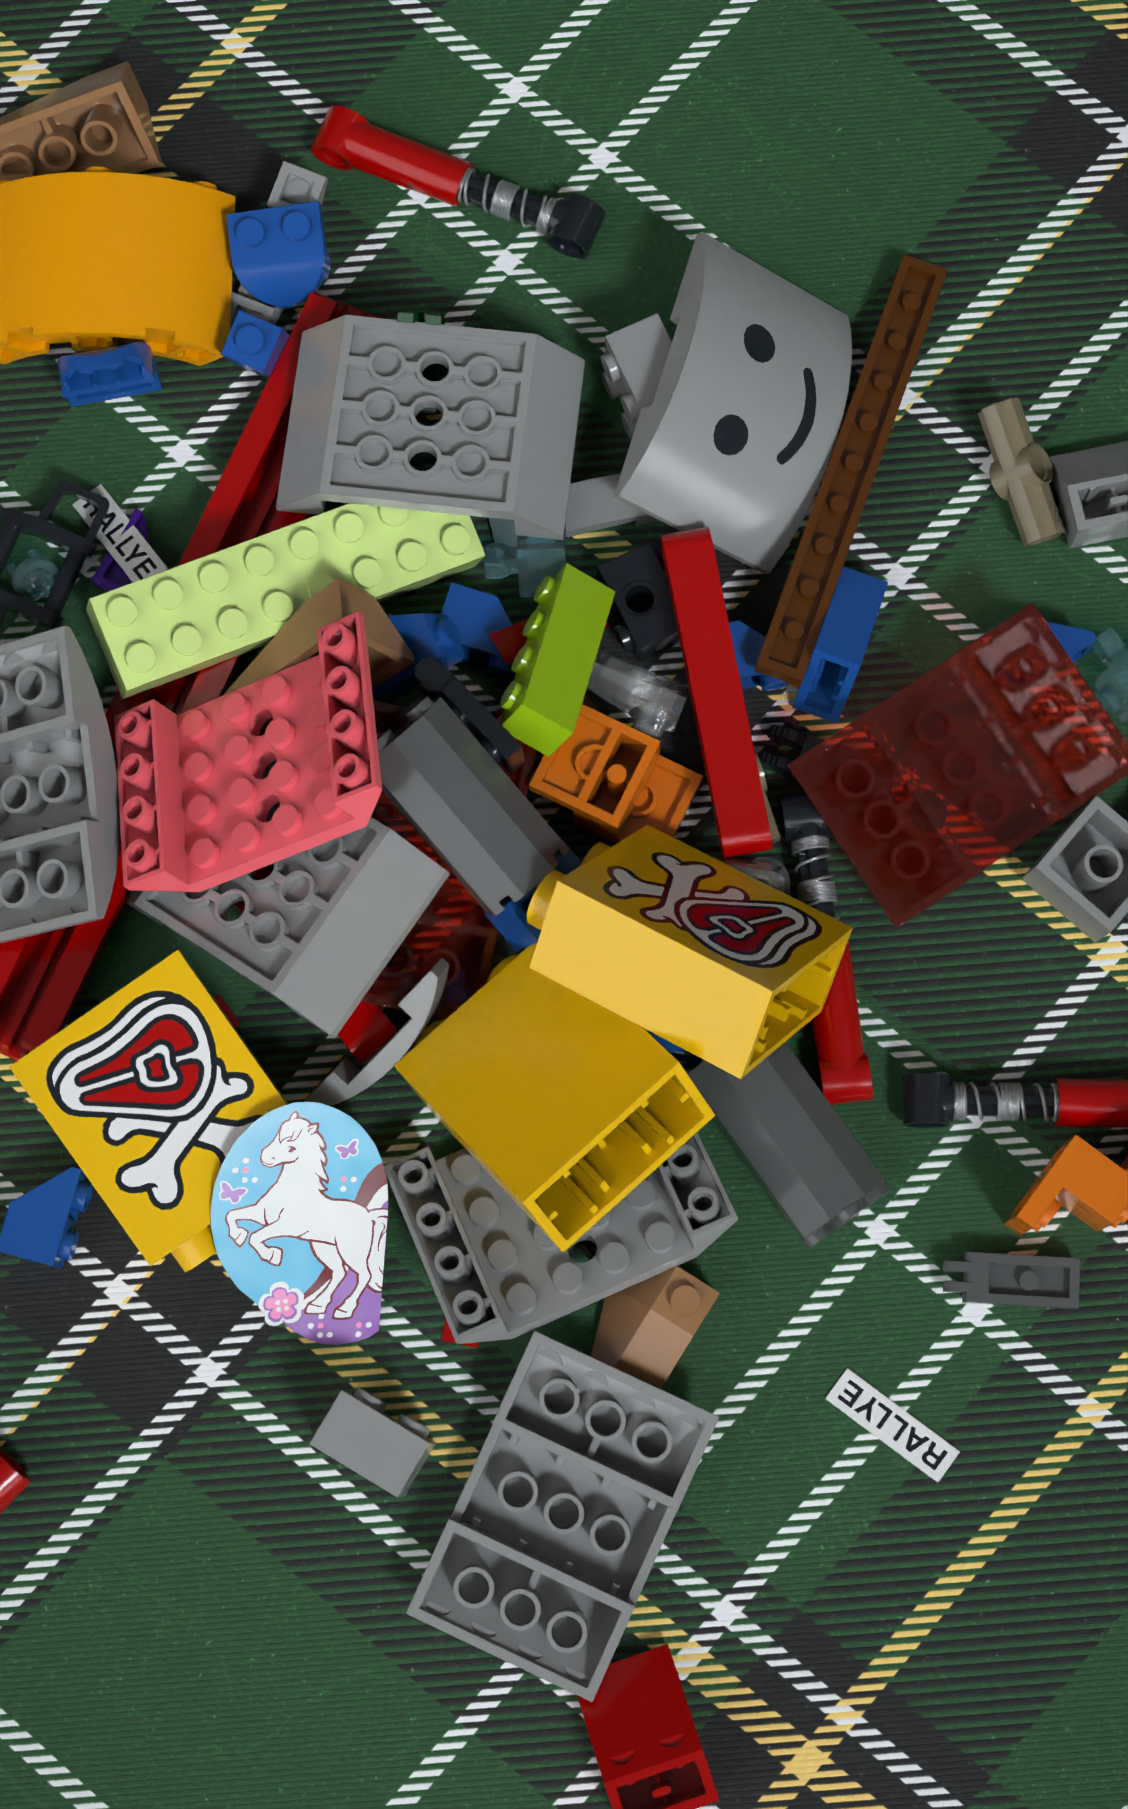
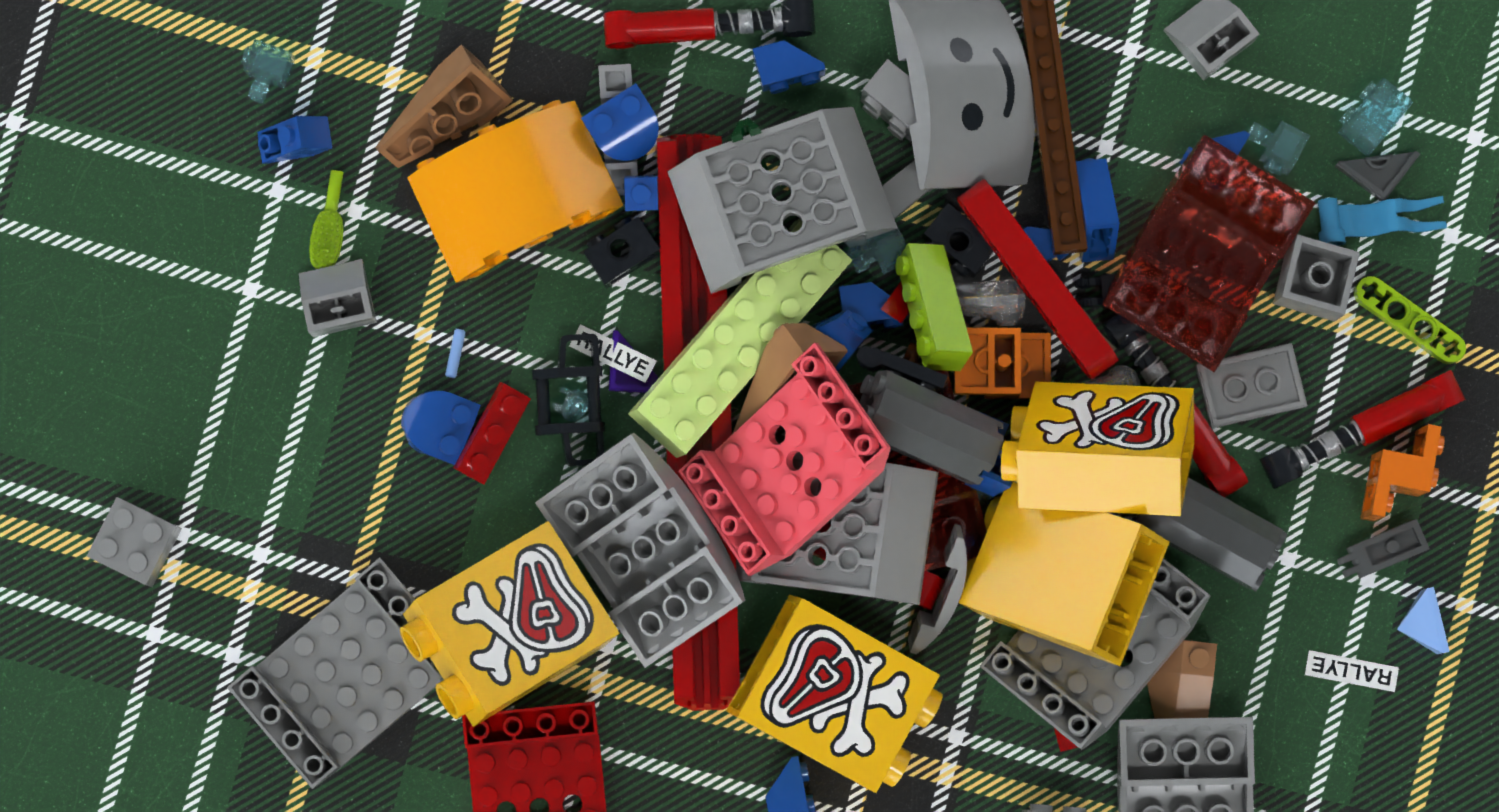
camera: 30 degrees left, 5 degrees up
(108, 373) = (555, 254): blue slope -> none
(218, 427) = (612, 269): none -> black brick
(305, 1221) = (952, 721): sticker -> none
(528, 278) = (783, 65): none -> blue slope
(941, 975) = (1252, 386): none -> light grey tile
(1021, 472) = (1153, 48): dark tan piece -> none
(1023, 1408) = (1425, 623): none -> light blue slope

